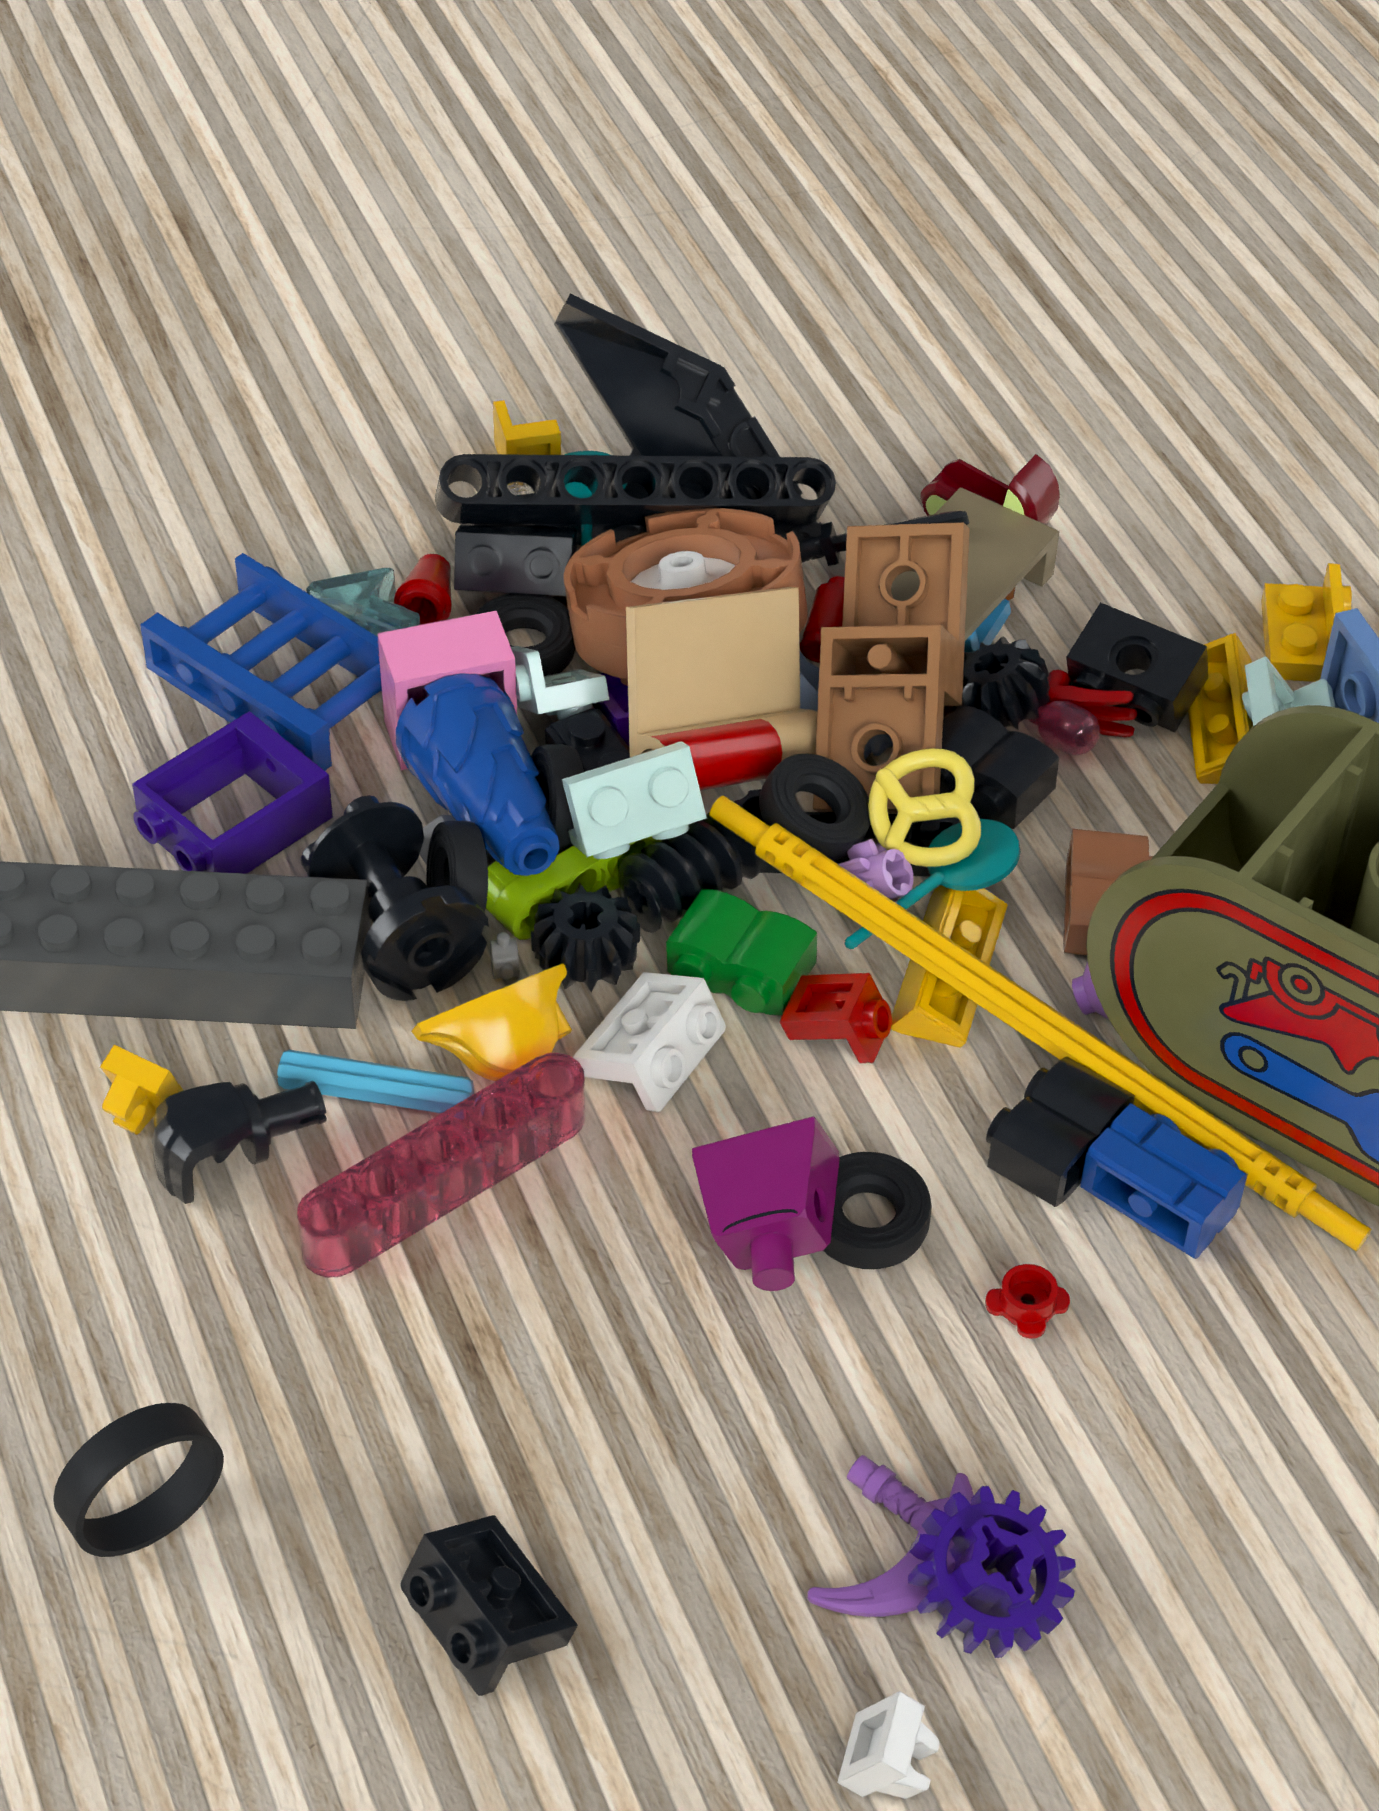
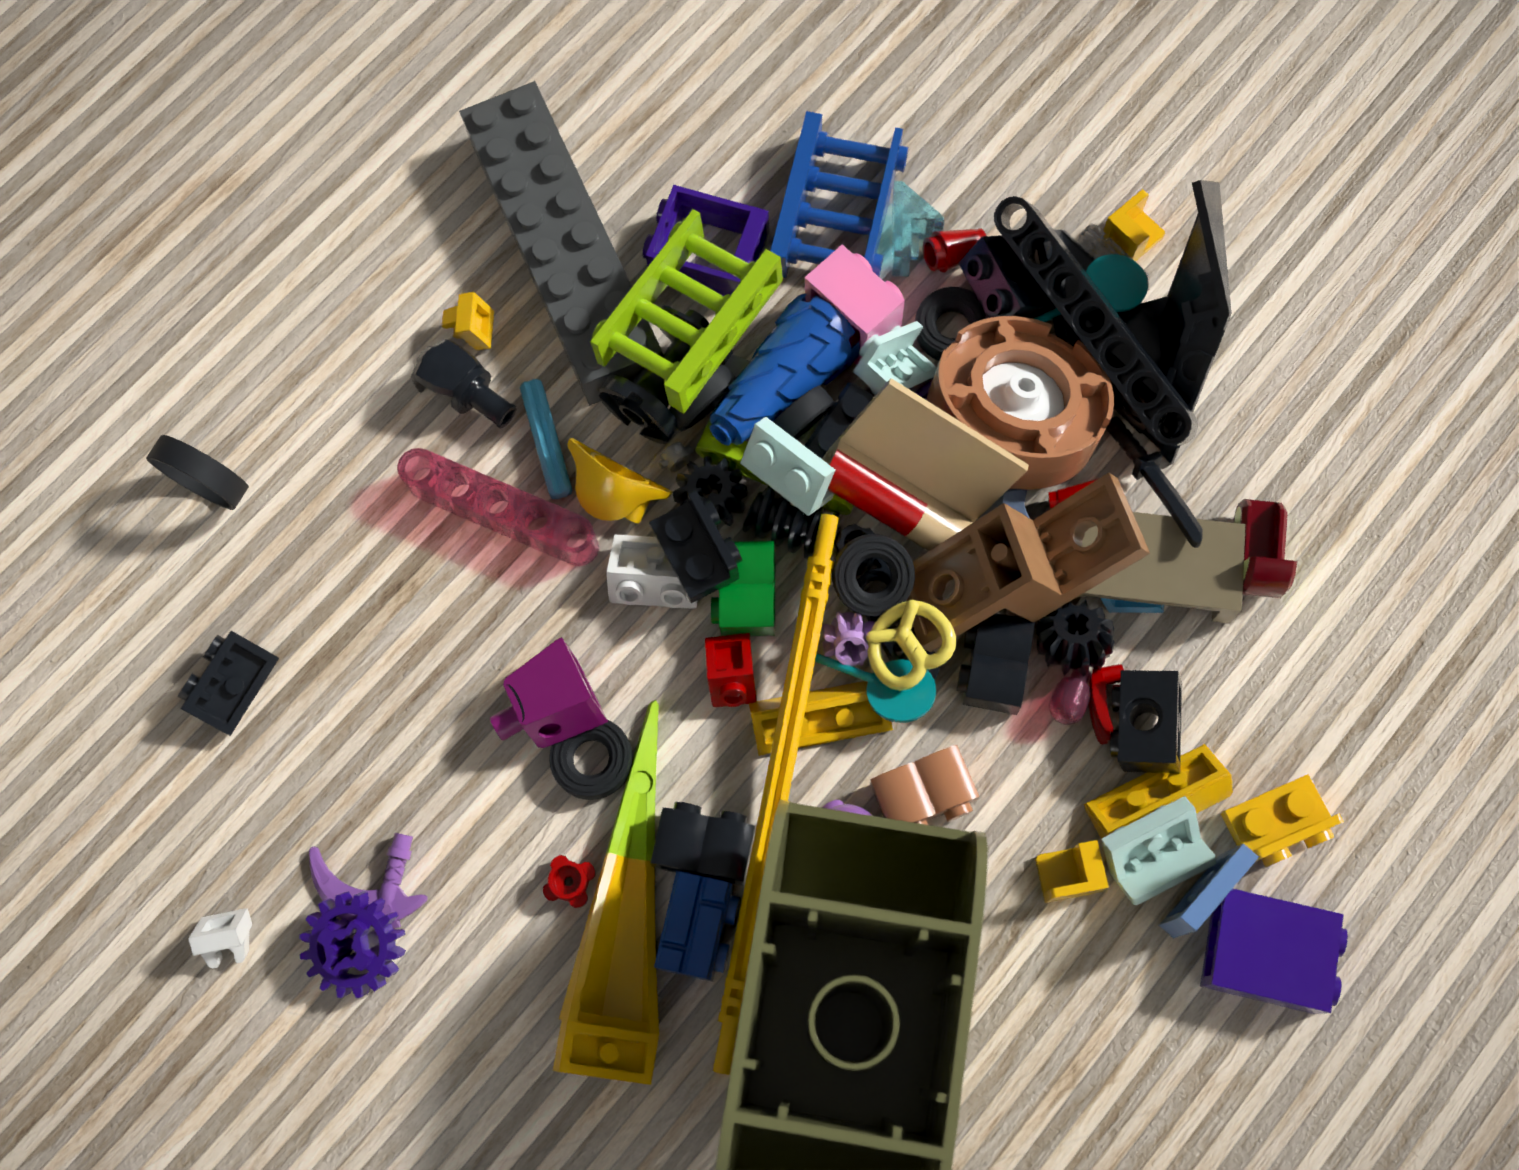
camera: 70 degrees right, 25 degrees up
(392, 754) = (707, 345): none -> lime fence
(668, 943) = (697, 548): none -> black bracket
(1205, 1295) = (612, 994): none -> yellow plate

